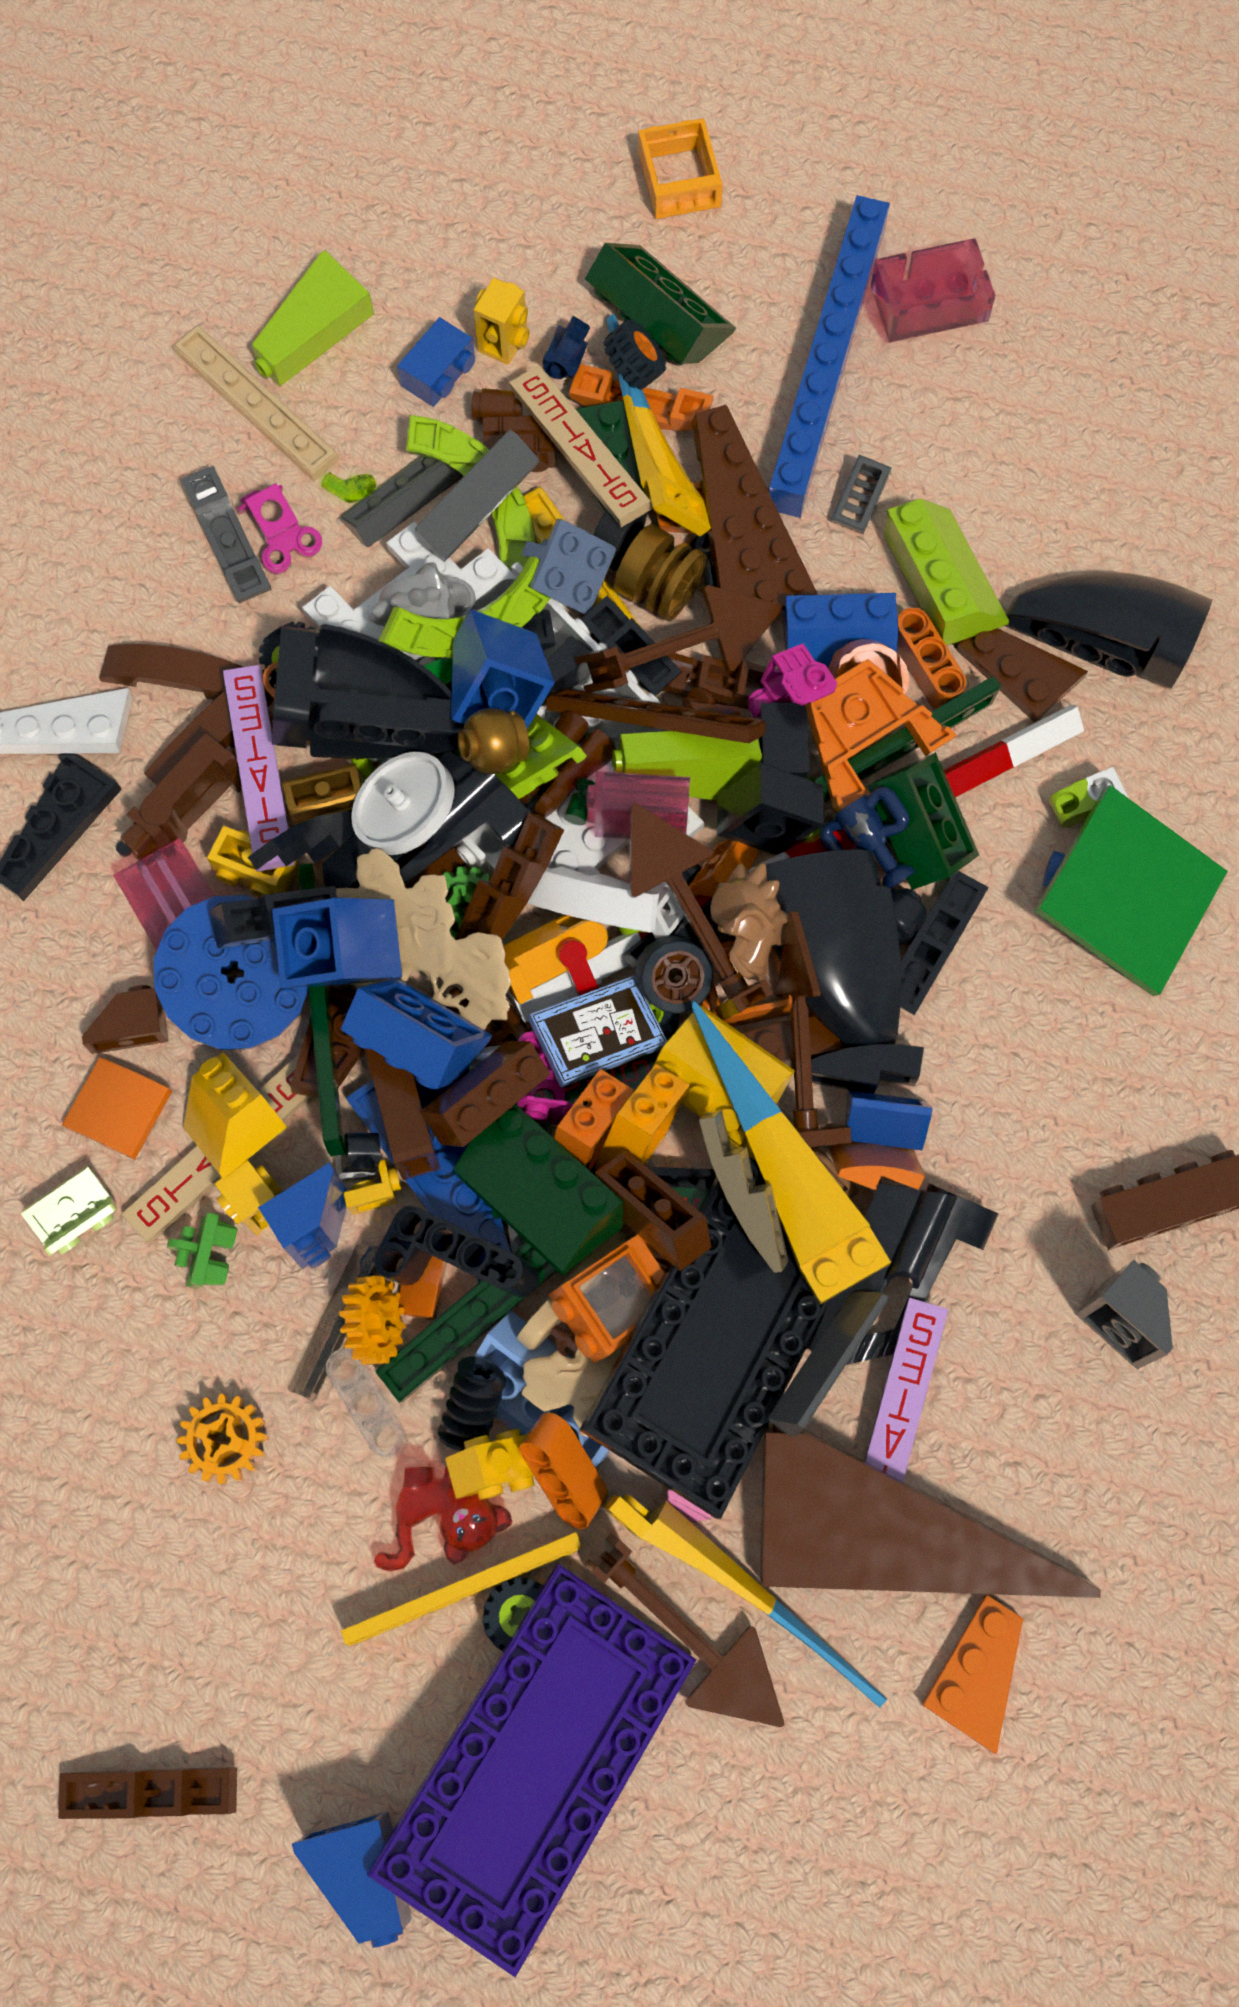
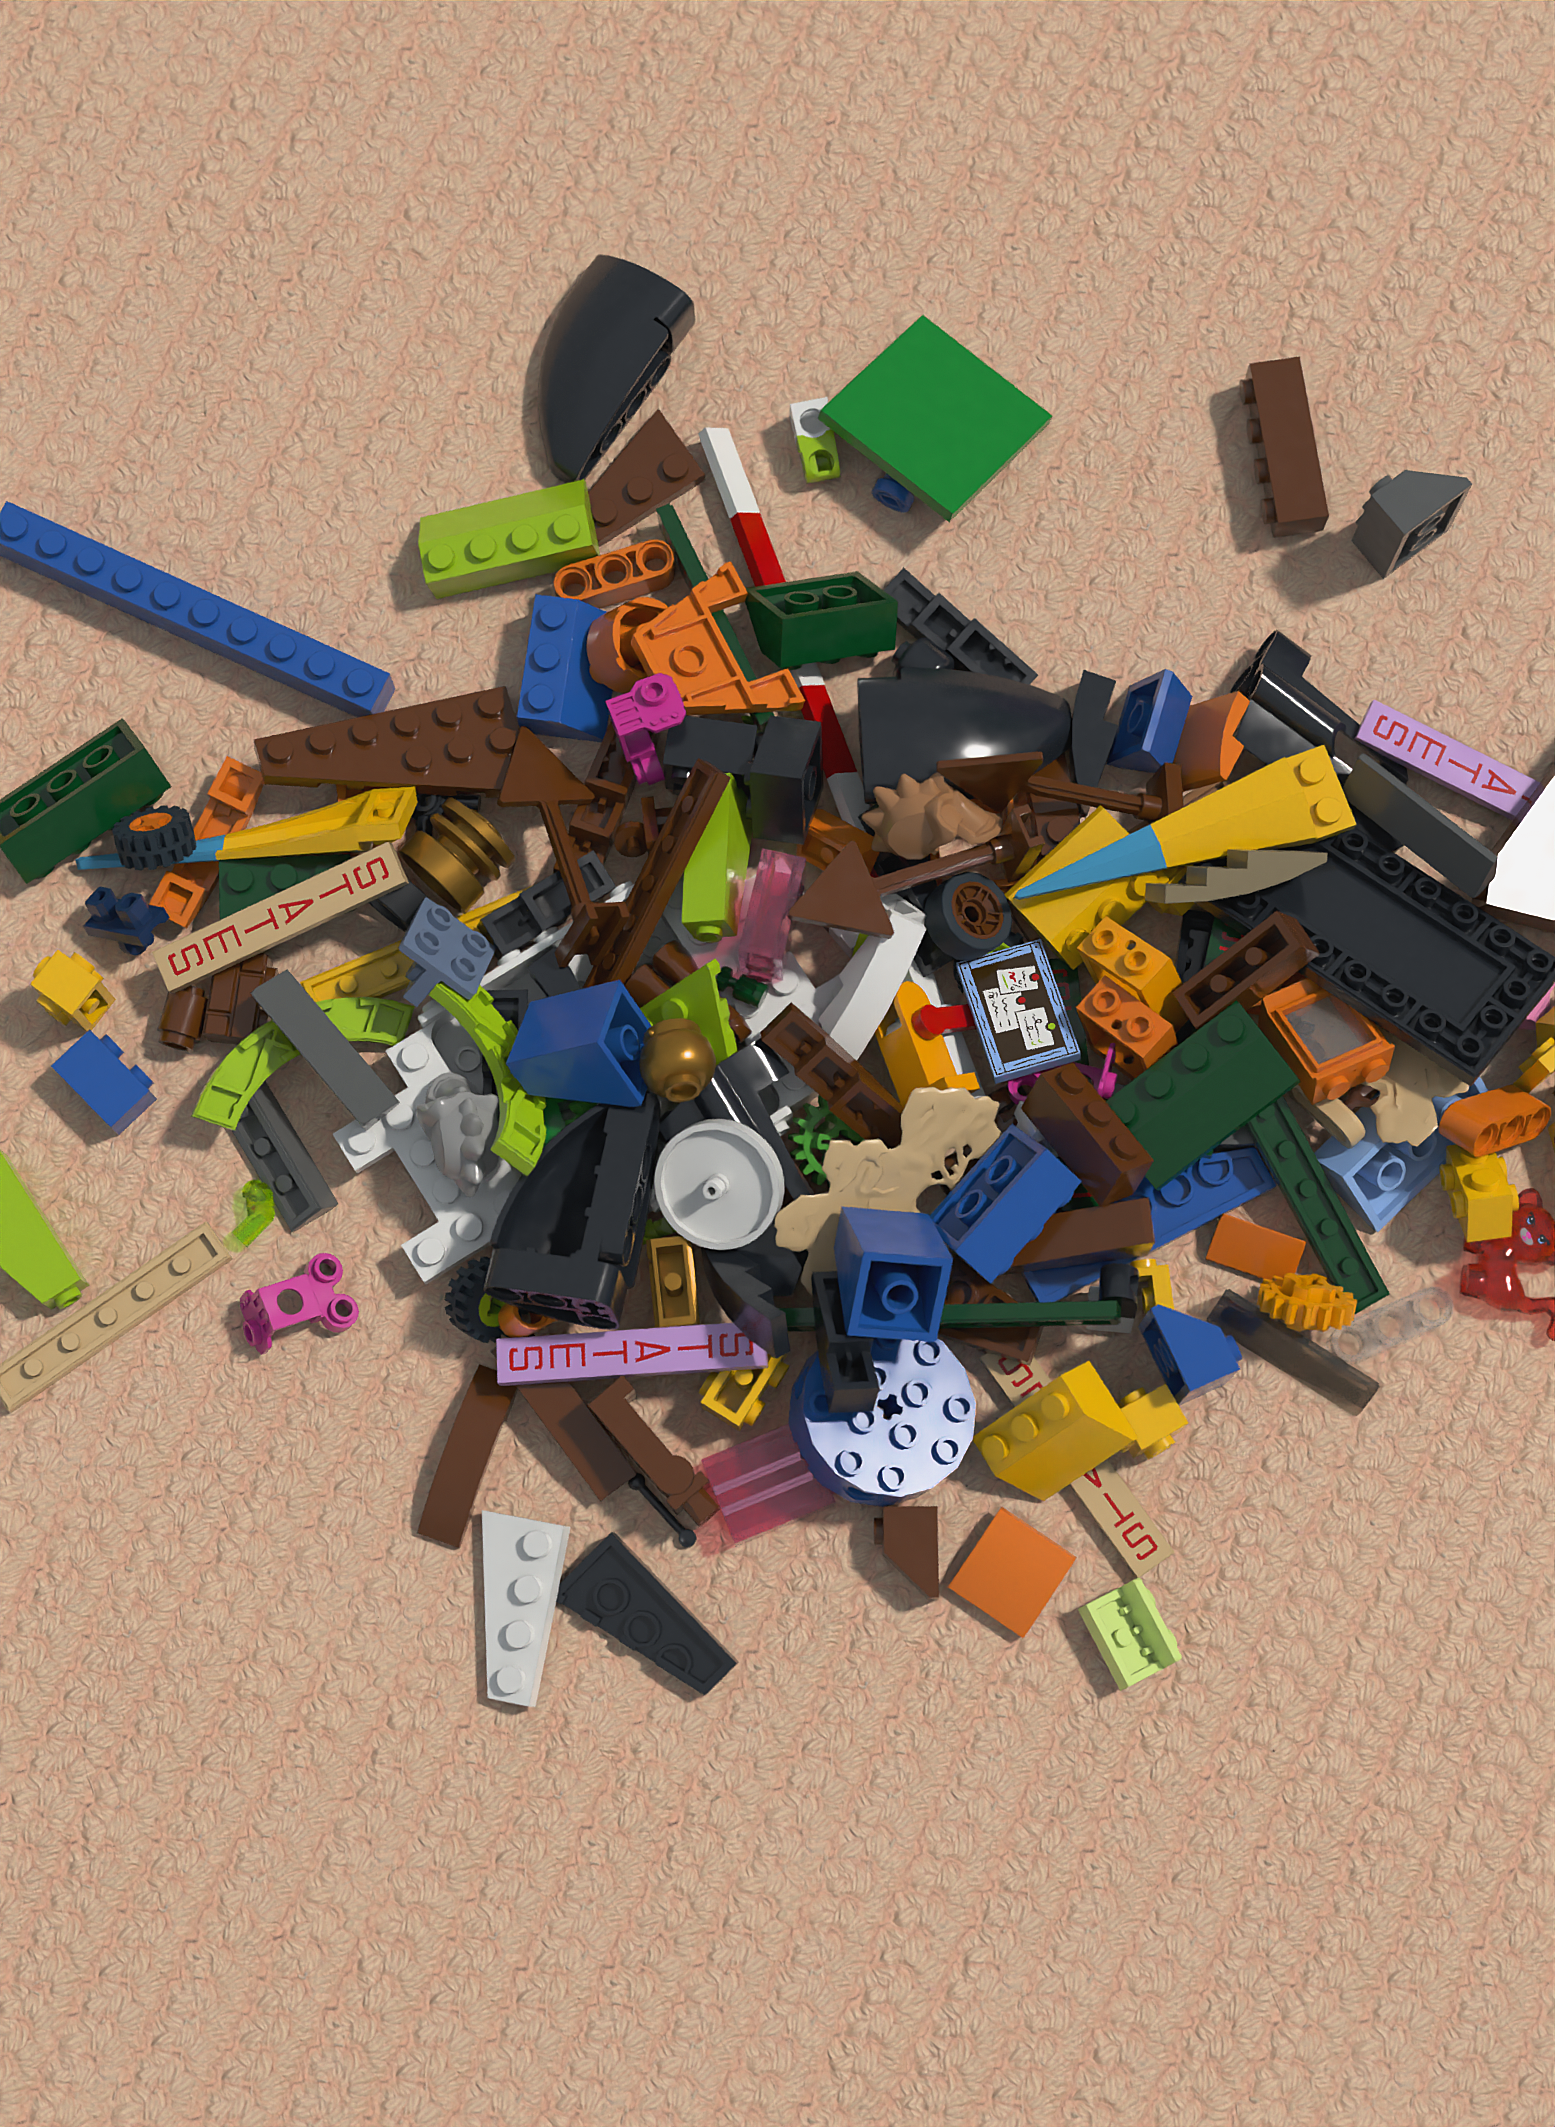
camera: 80 degrees left, 5 degrees up
(210, 1234) = (1193, 1491): bright green hips -> none
(217, 1454) = (1416, 1470): light orange gear -> none
(225, 534) = (300, 1369): dark grey slope -> none
(463, 1253) = (1257, 1195): black beam -> none
(471, 1402) = (1410, 1209): black piece -> none
(868, 832) = (833, 678): dark blue piece -> none
(871, 469) = (361, 617): dark grey slope -> none
(936, 291) = (132, 477): clear pink piece -> none

